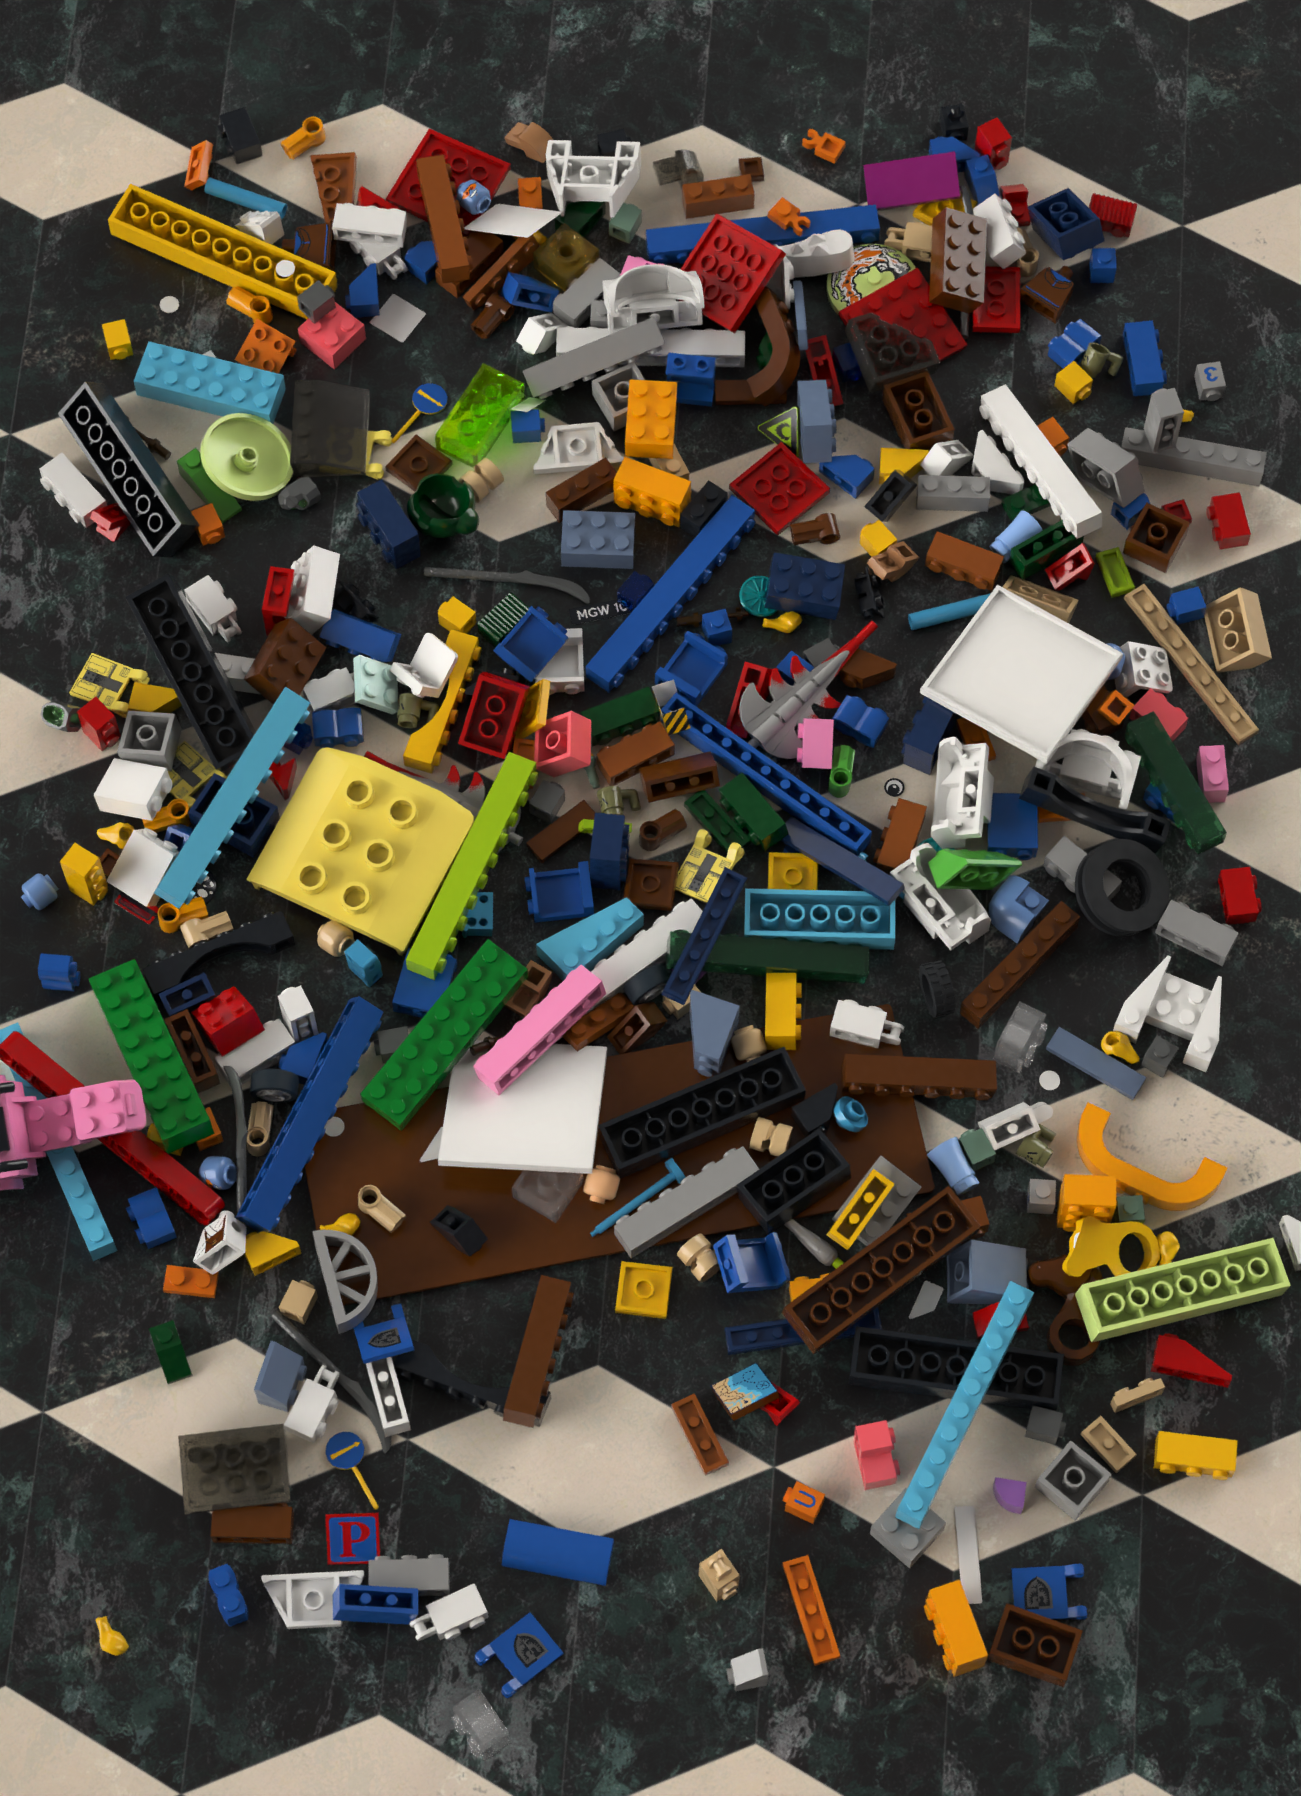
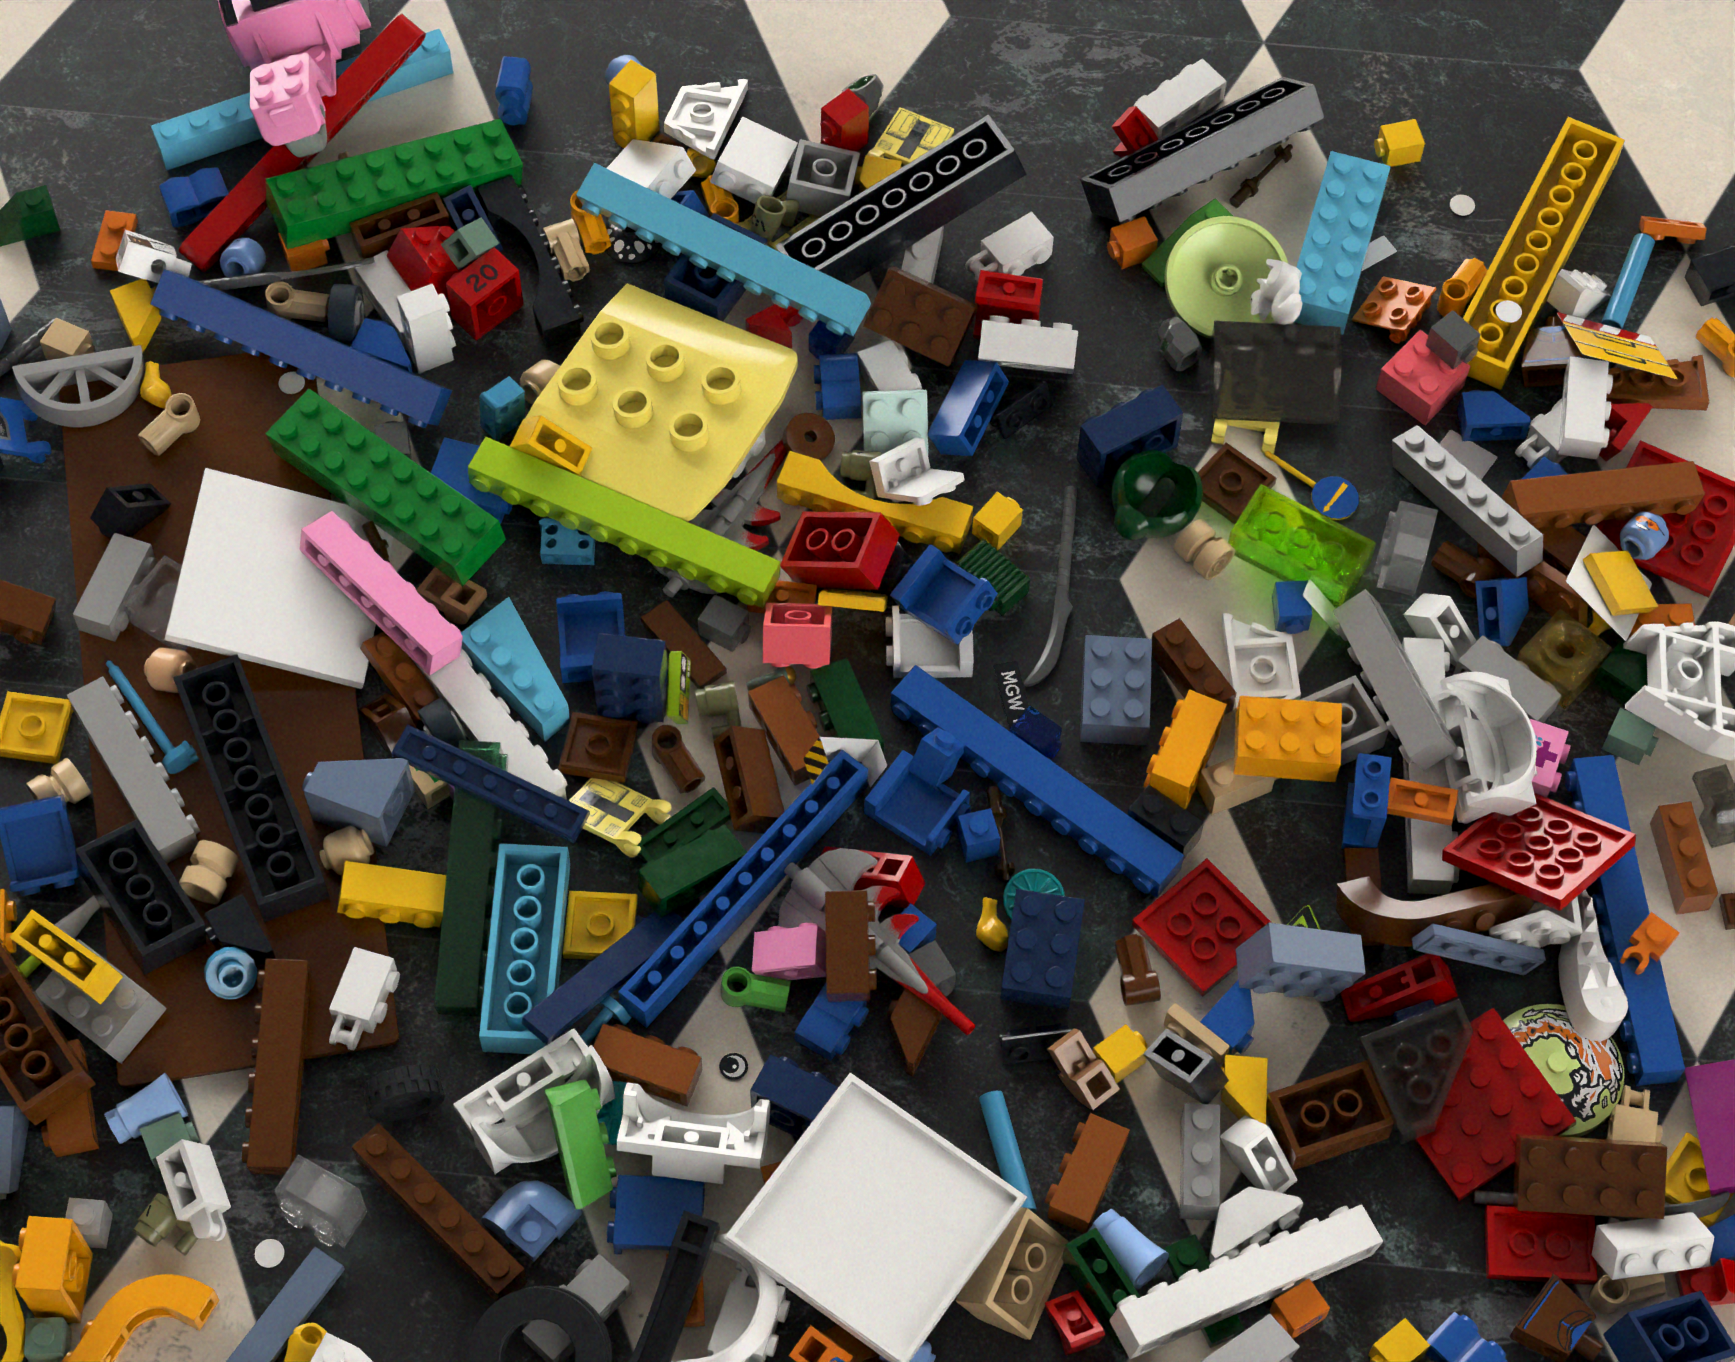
camera: 90 degrees right, 5 degrees down
(86, 827) = (704, 115): none -> white wing
(188, 775) = (770, 213): none -> olive piece
(224, 983) = (469, 243): none -> sand green brick
(256, 981) = (484, 293): none -> red brick
(266, 413) = (1278, 293): none -> white animal
(312, 203) = (1616, 345): none -> yellow sticker
(385, 739) = (816, 428): none -> reddish brown piece
(412, 914) = (551, 444): none -> yellow slope
(446, 304) = (1467, 501): none -> light grey brick
(482, 344) = (1404, 547): none -> clear brick
(514, 213) = (1620, 583): none -> yellow tile
(529, 1232) = (115, 578): none -> light grey brick
(658, 652) = (936, 757): none -> blue brick
(692, 337) = (1422, 801): none -> orange plate
(818, 698) = (849, 946): none -> reddish brown brick
(858, 498) = (1193, 1031): none -> tan plate

